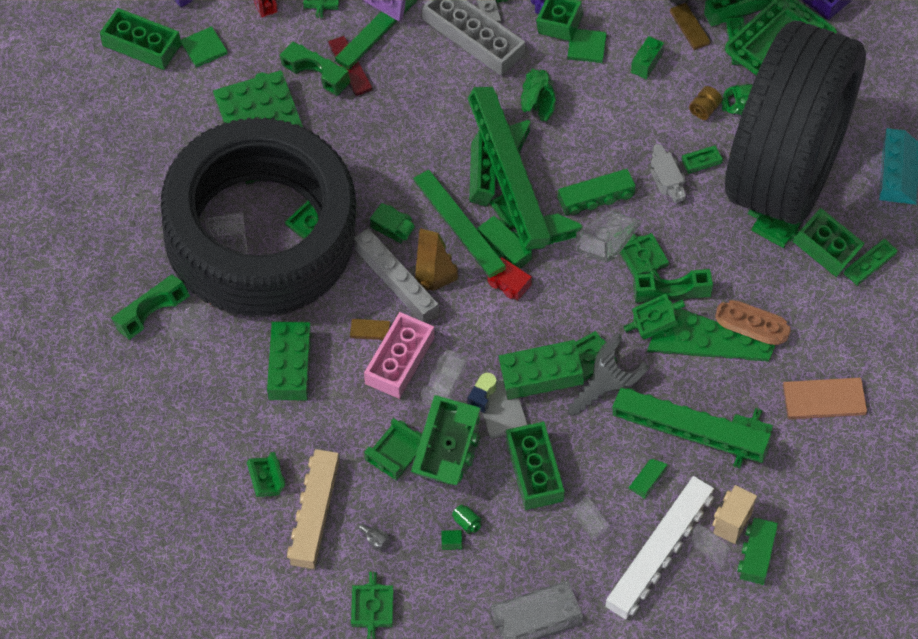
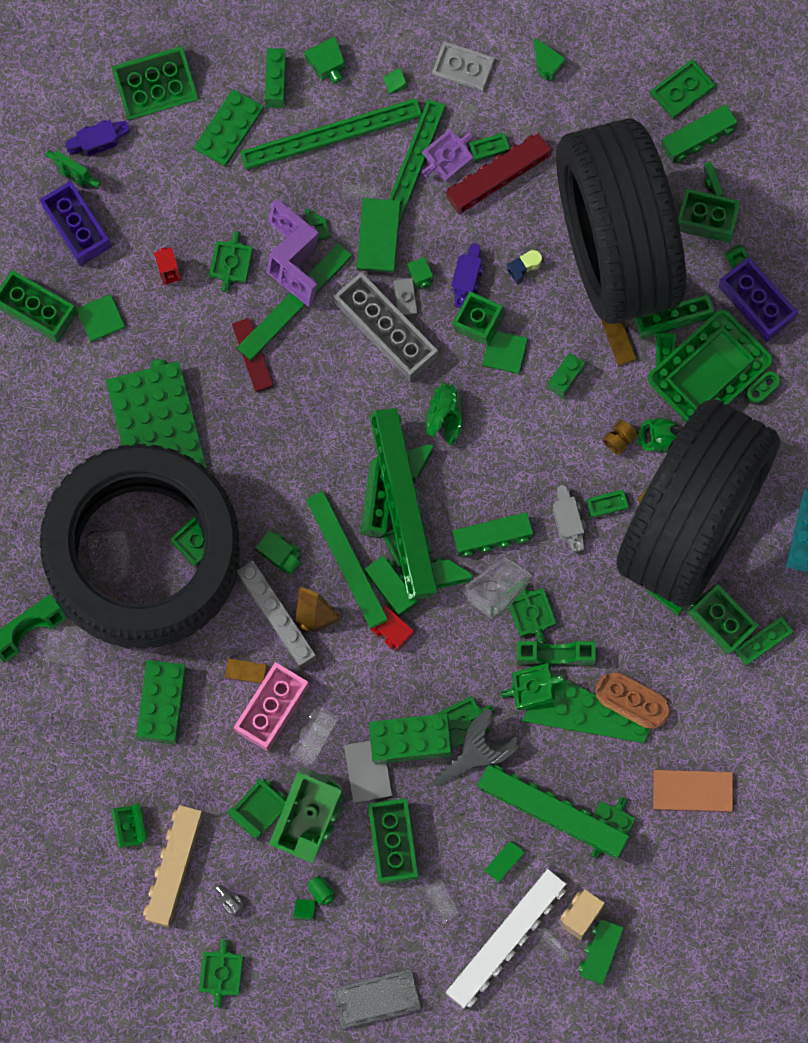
camera: 10 degrees right, 15 degrees up
(299, 58) = (198, 344): green arch -> none
(483, 388) = (345, 761): leg -> none

